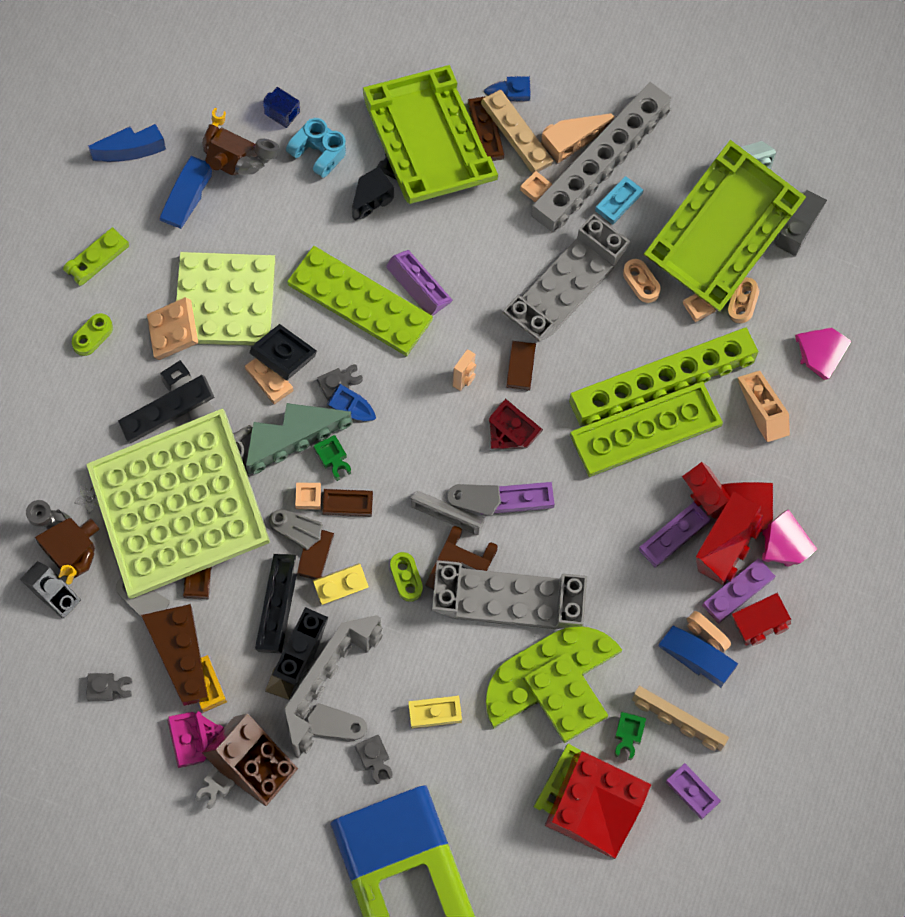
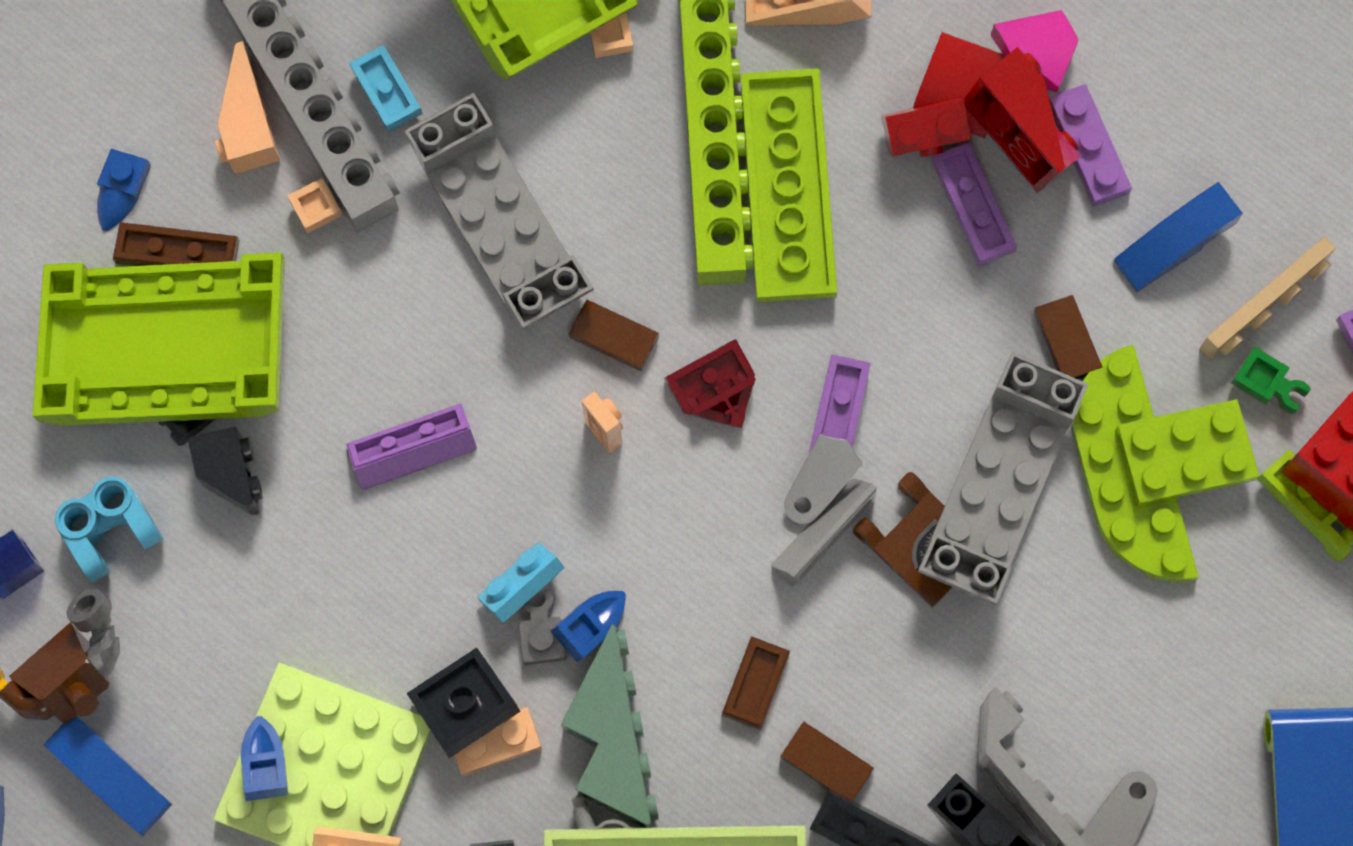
camera: 65 degrees left, 5 degrees up
(215, 262) = (263, 762): none -> plate
(297, 528) = (775, 777): light grey piece -> none
(308, 496) = (726, 742): light nougat plate -> none
(331, 454) = (665, 682): green plate -> none
(340, 583) = (893, 738): light yellow plate -> none
(360, 300) = (408, 550): lime plate -> none
(361, 361) = (520, 582): none -> medium azure plate
(373, 755) = (1188, 778): flat silver plate -> none
(406, 577) = (913, 629): lime plate -> none
(435, 712) = (1149, 658): light yellow plate -> none
(517, 131) = (203, 202): tan plate -> none
(612, 612) = (1067, 337): none -> reddish brown tile
(641, 282) = (536, 101): light nougat plate -> none
(702, 626) = (1132, 217): light nougat plate -> none
(762, 619) = (1152, 125): red brick -> none

